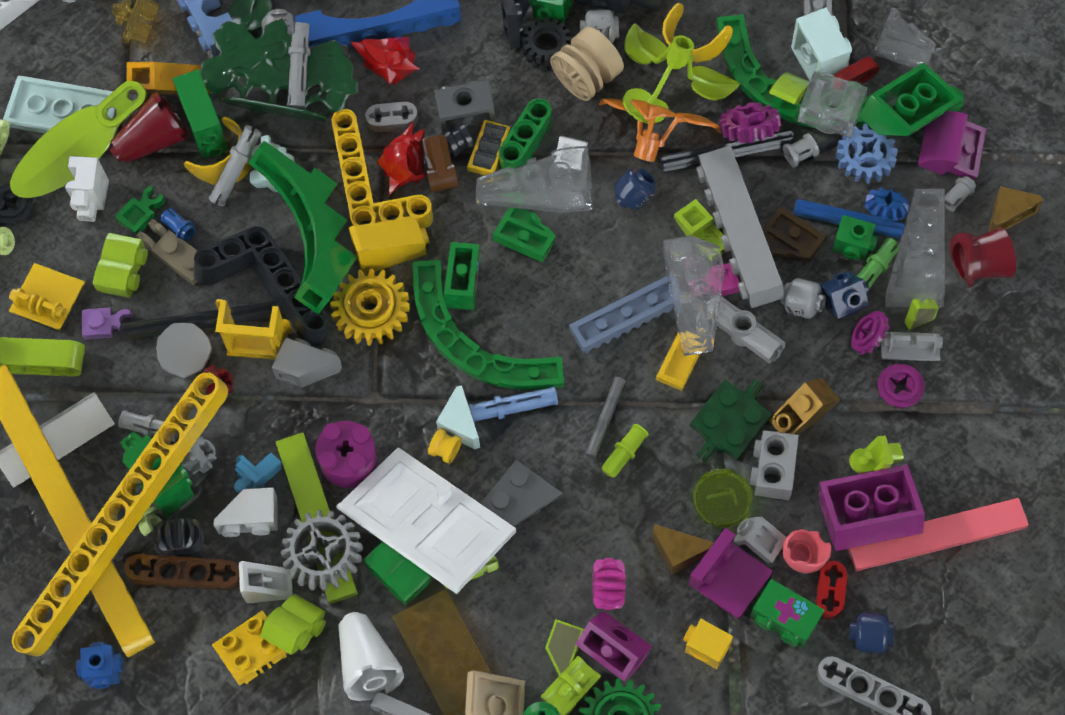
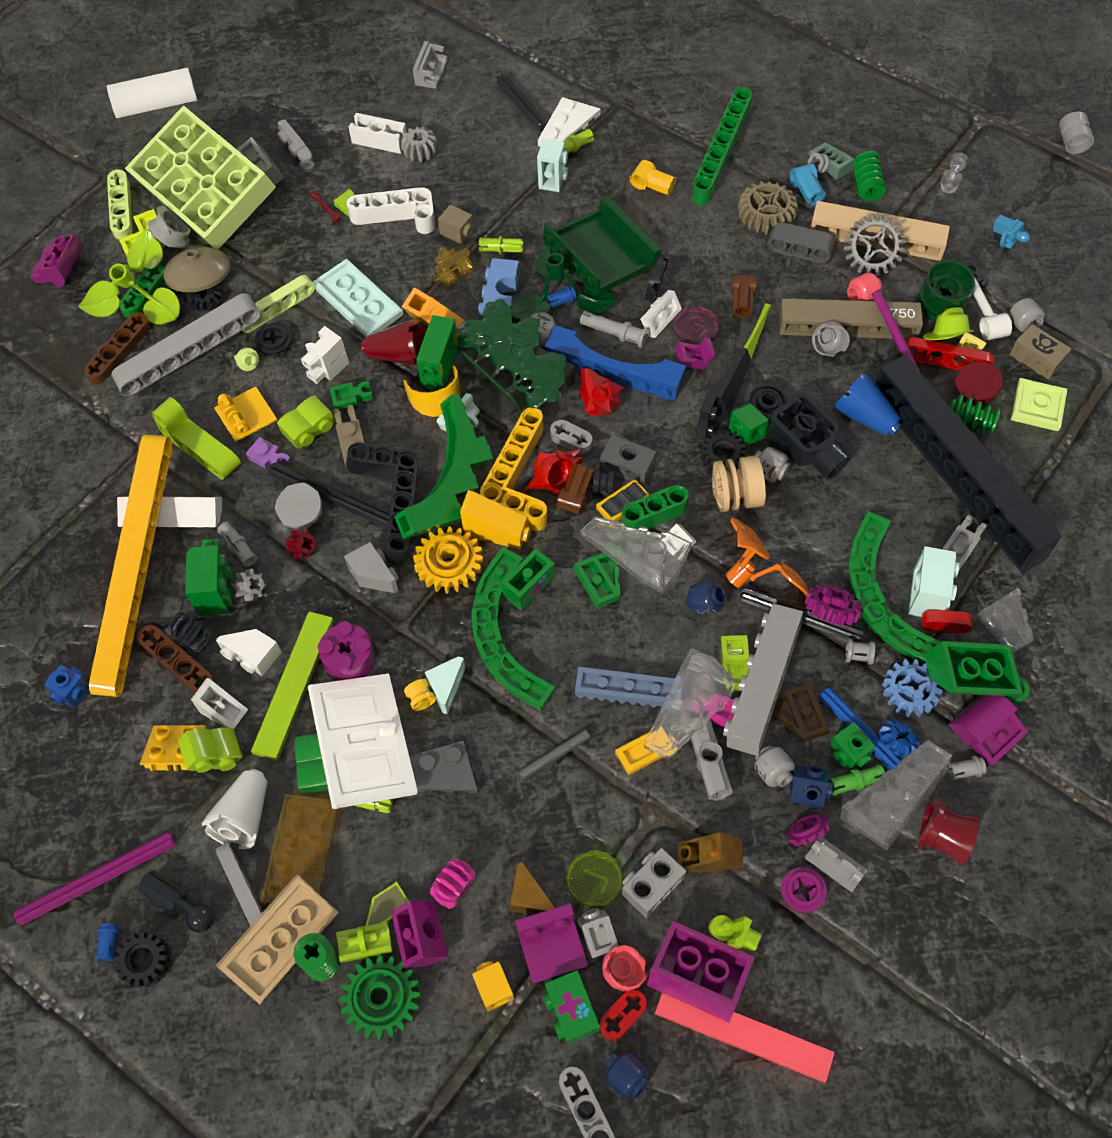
camera: 35 degrees right, 5 degrees down
(78, 135) = (347, 319): lime plant -> none
(107, 520) = (153, 587): yellow beam -> none
(149, 520) = (181, 603): yellowish green plate -> none
(182, 228) = (367, 423): blue pin -> none
(239, 156) = (430, 402): light grey pin -> none
(252, 340) = (343, 526): yellow piece -> none
(257, 475) = (278, 627): dark azure piece -> none
(298, 64) = (531, 349): light grey pin -> none
(332, 545) = (274, 692): light grey gear -> none
(513, 404) = (483, 694): medium blue pin -> none
(624, 451) = (547, 790): lime axle -> none
(646, 48) = (796, 501): lime plant -> none
(705, 52) = (837, 531): yellow piece -> none
(730, 420) = (646, 822): dark green plate -> none
(790, 88) = (886, 598): lime slope -> none
(828, 90) = (913, 618): clear brick -> none
(921, 313) = (862, 843): lime tile -> none
(1013, 207) = (1005, 809): pearl gold slope -> none

